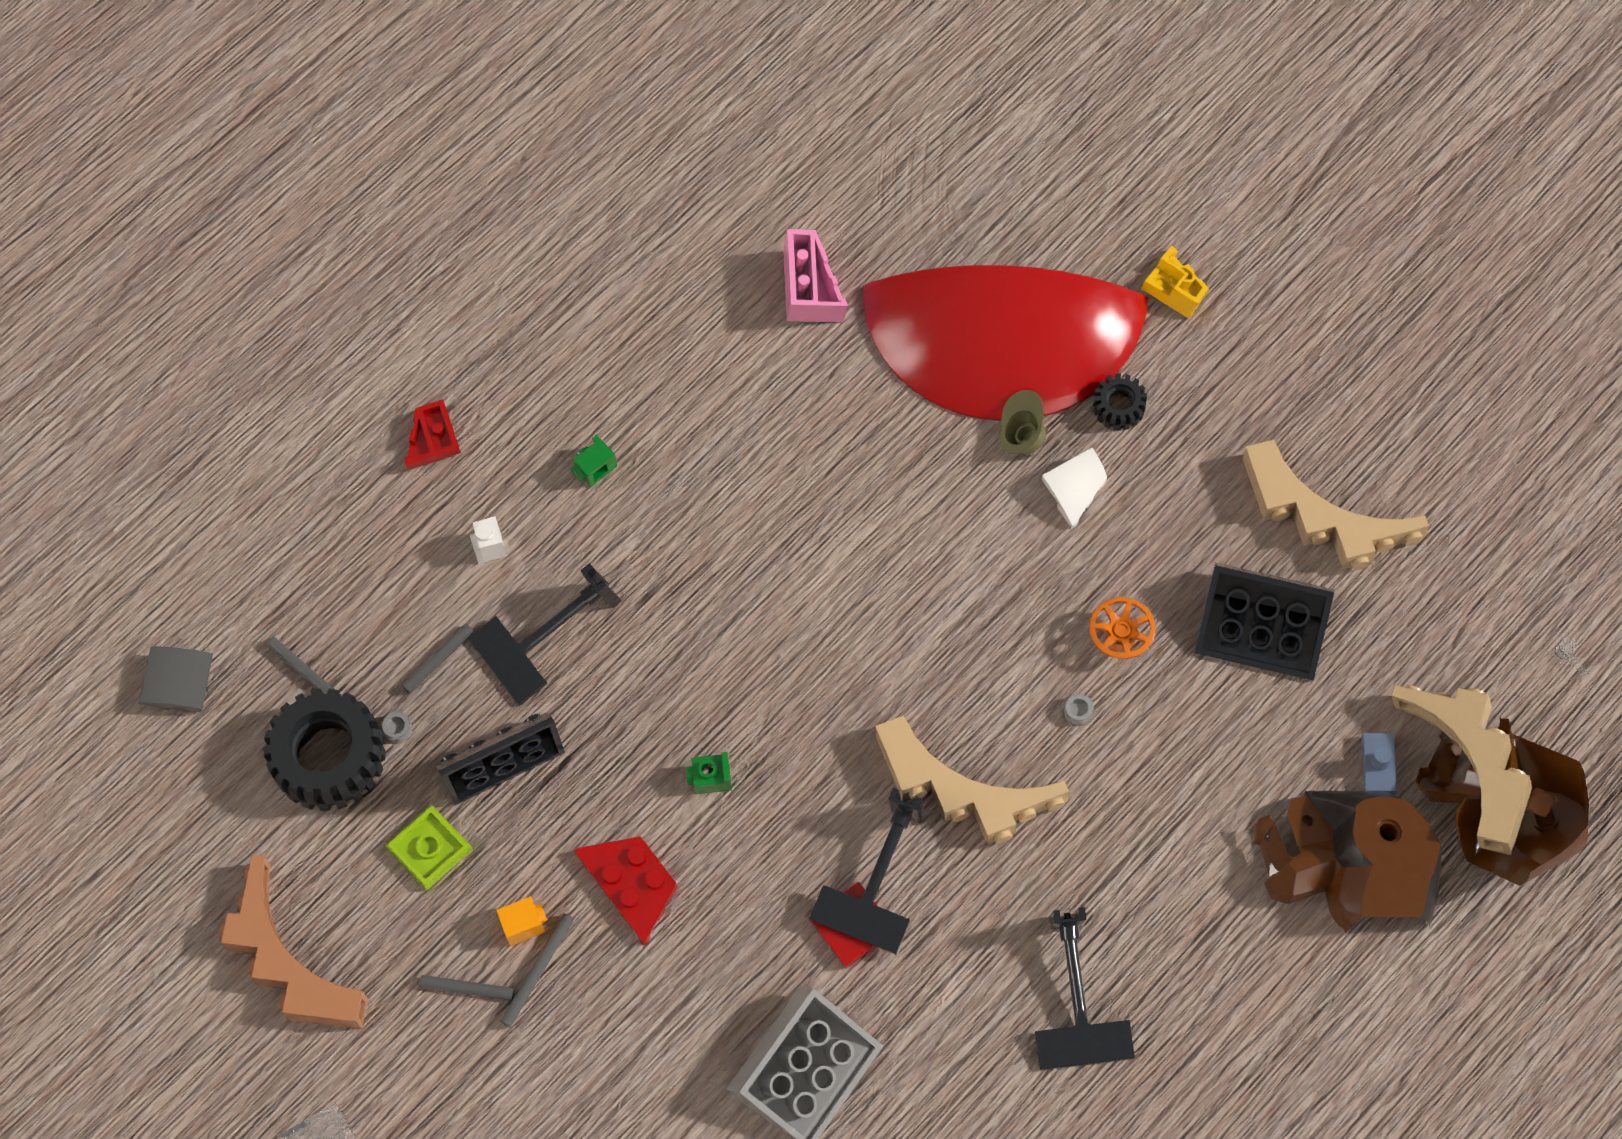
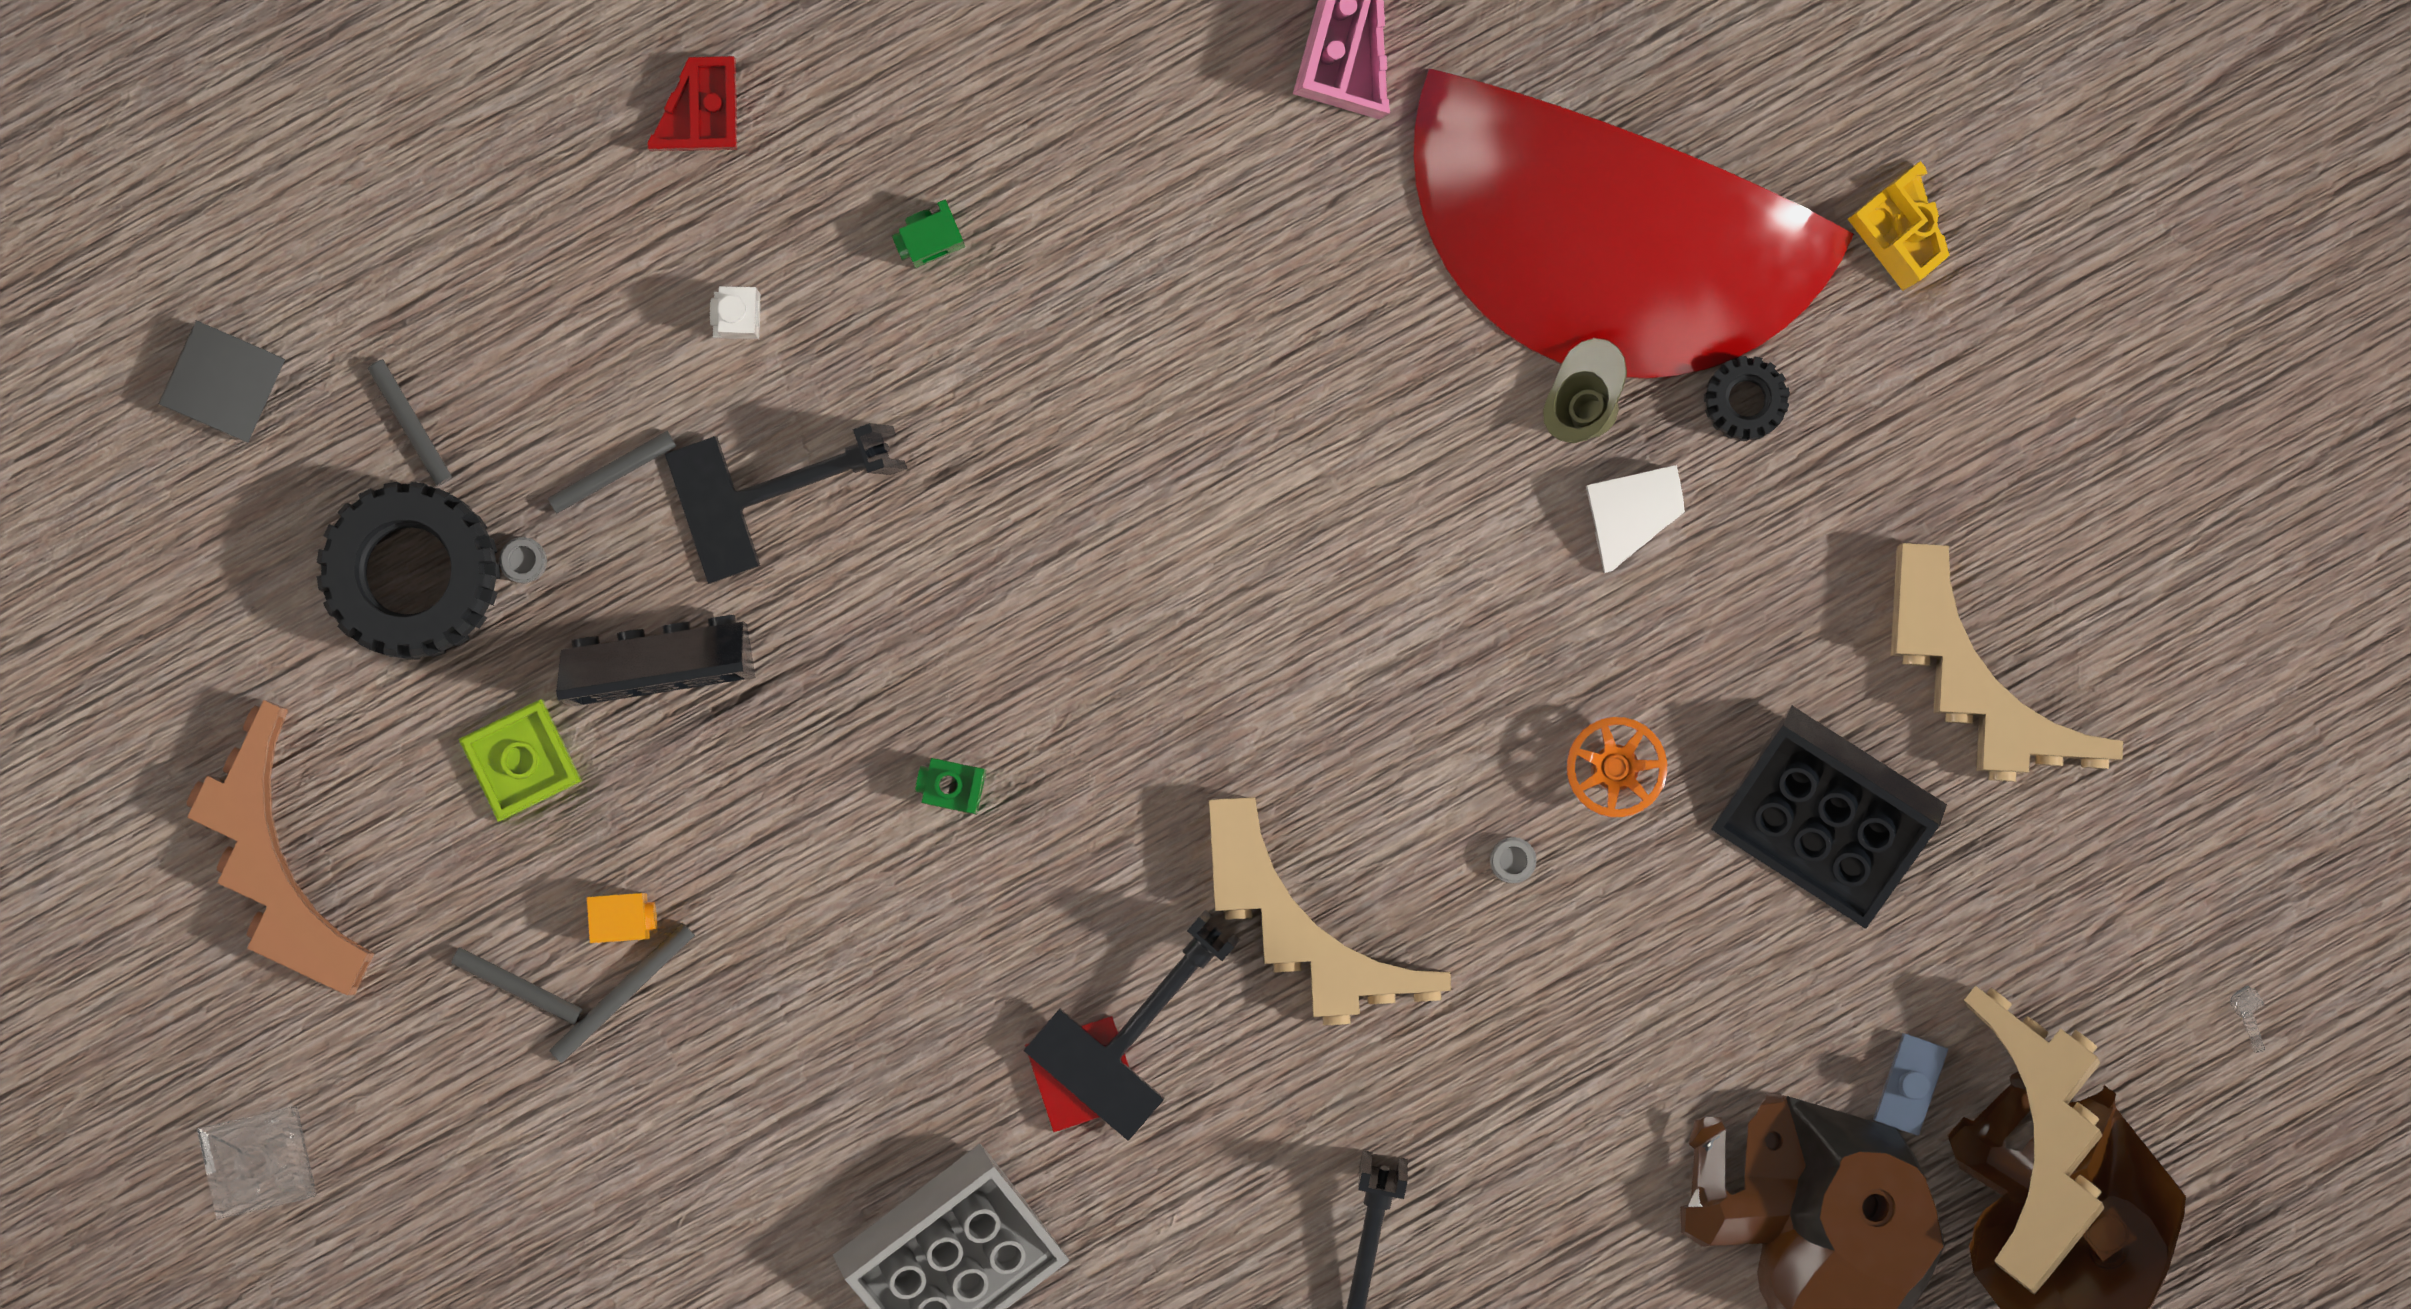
camera: 15 degrees right, 20 degrees up
(631, 881) = (792, 905): red wing -> none

